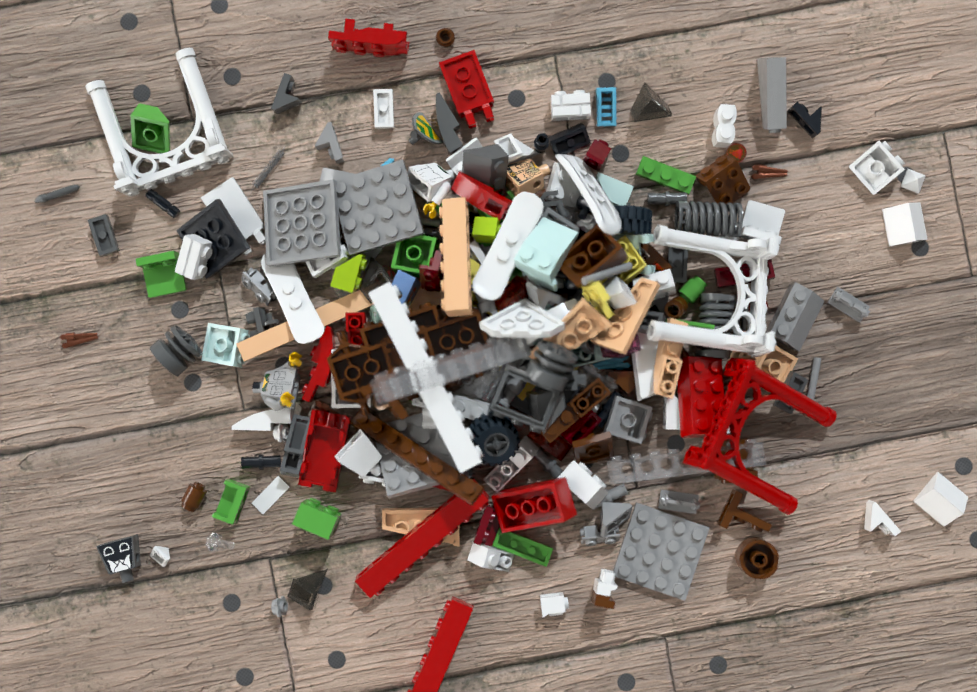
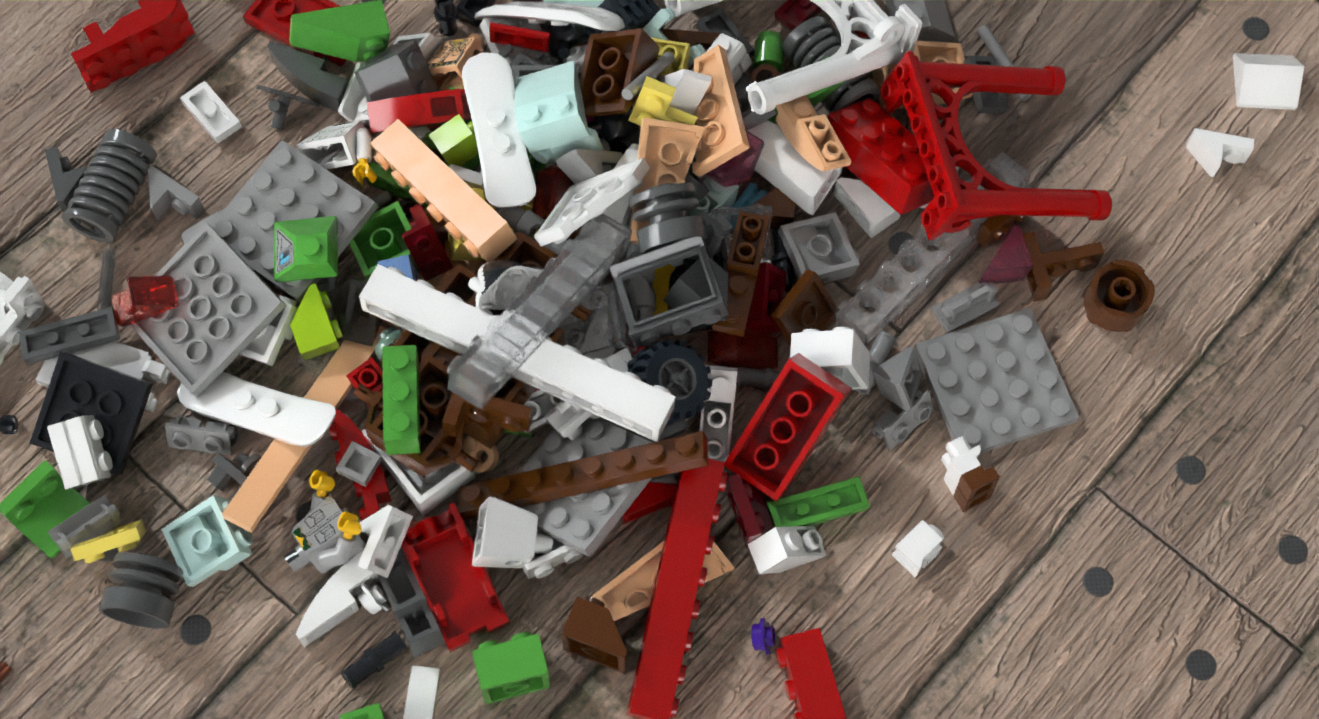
camera: 40 degrees left, 20 degrees down
(173, 295) = (85, 524): none -> light grey hinge
(183, 317) = (122, 538): none -> light yellow plate
(229, 188) = (69, 335): none -> dark grey plate
(277, 197) = (144, 299): none -> clear red slope
(303, 118) = (109, 185): none -> dark grey piece
(303, 413) = (386, 534): none -> white slope
(317, 365) = (358, 464): none -> light grey plate
(351, 361) = (401, 400): none -> bright green brick
(366, 532) = (593, 634): none -> reddish brown slope
(370, 233) = (305, 249): none -> bright green slope
(445, 335) = (500, 281): none -> white hat
(446, 589) = (763, 636): none -> dark purple plate
(479, 122) = (344, 32): none -> bright green slope
(567, 189) = (520, 37): none -> red slope
(719, 496) = (1011, 261): none -> clear pink slope

